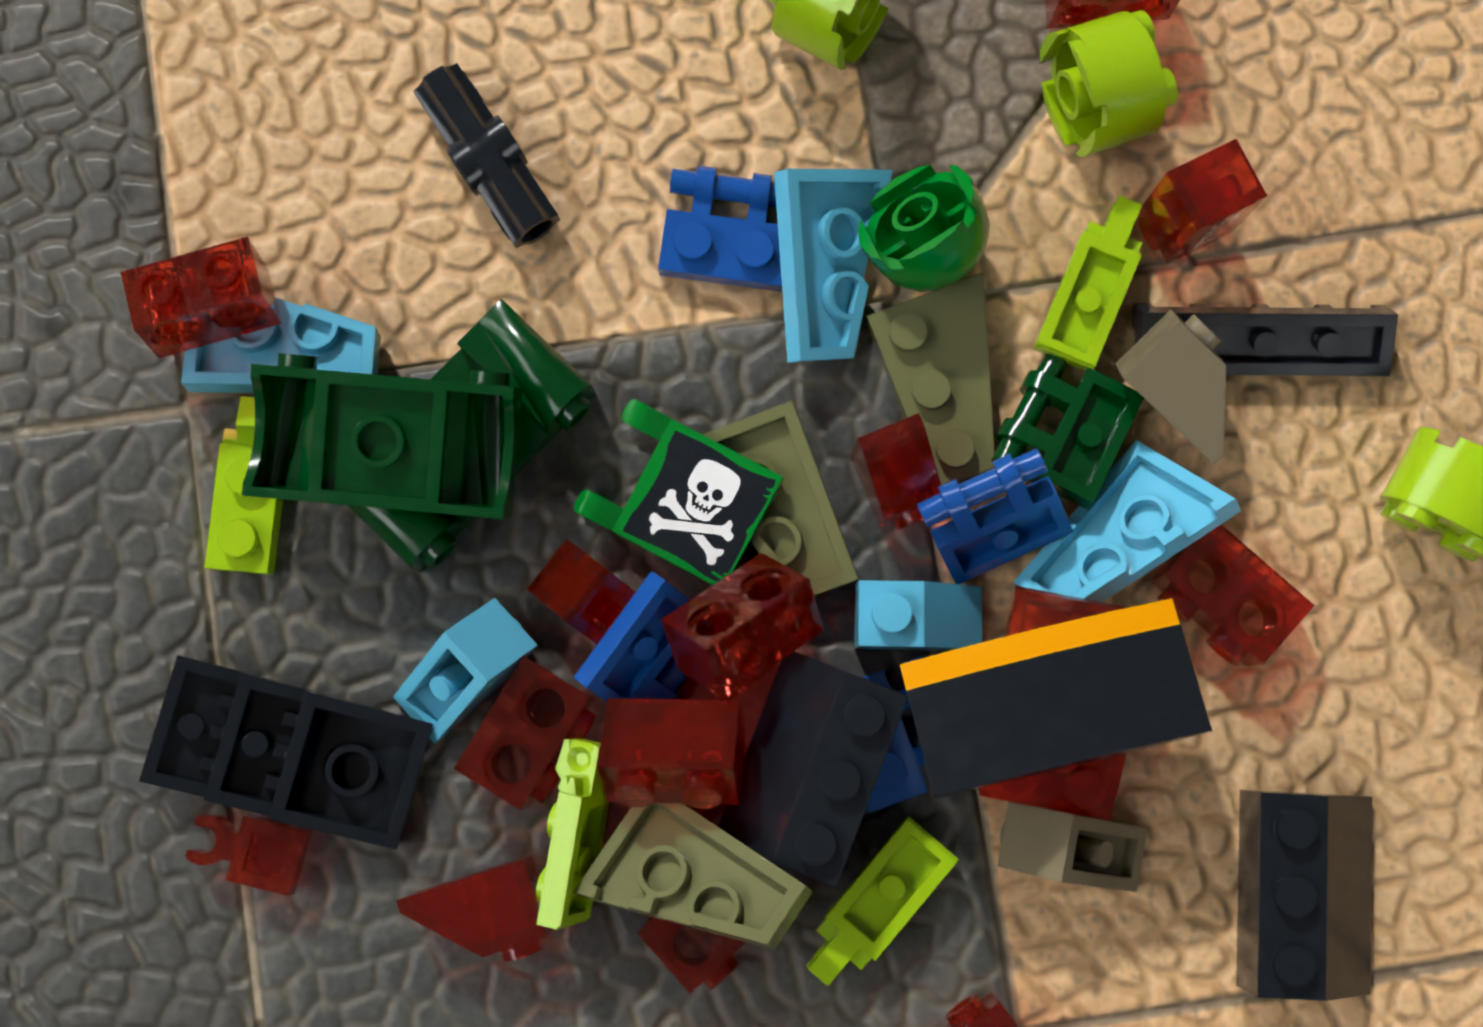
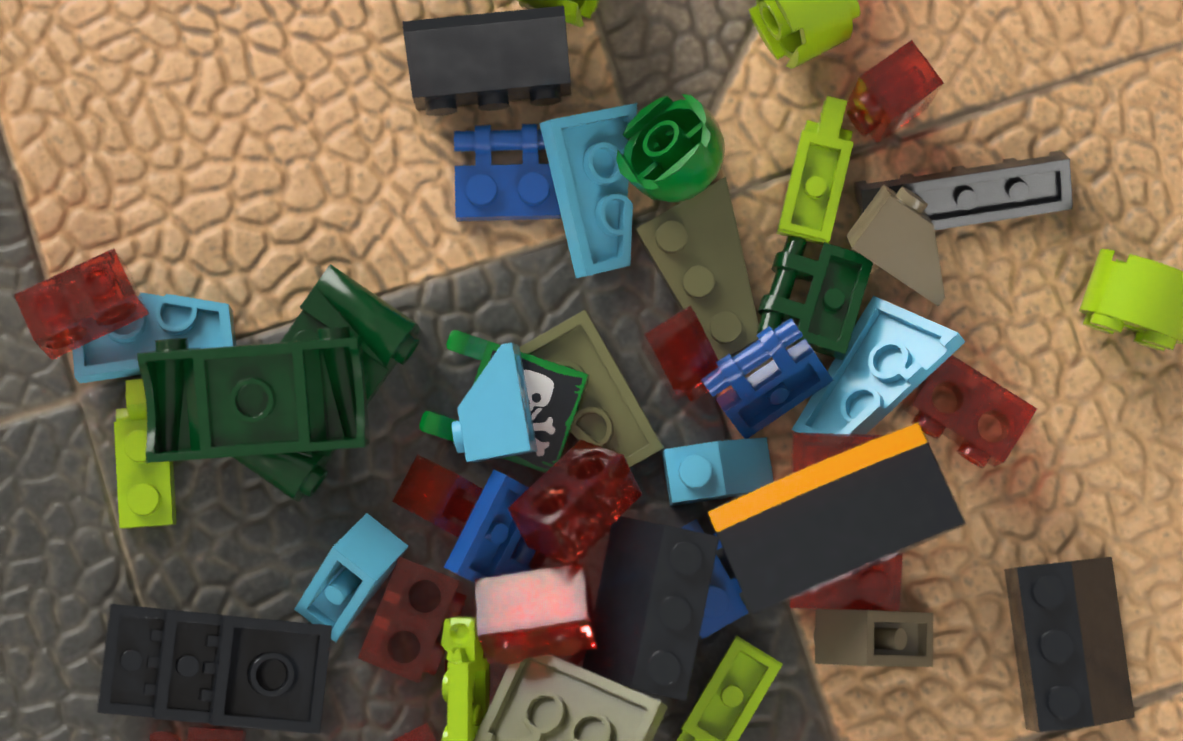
camera: 15 degrees left, 0 degrees up
(486, 155) = (296, 145): black piece -> none
(667, 502) = (496, 411): none -> medium azure slope
(726, 87) = (488, 60): none -> black slope

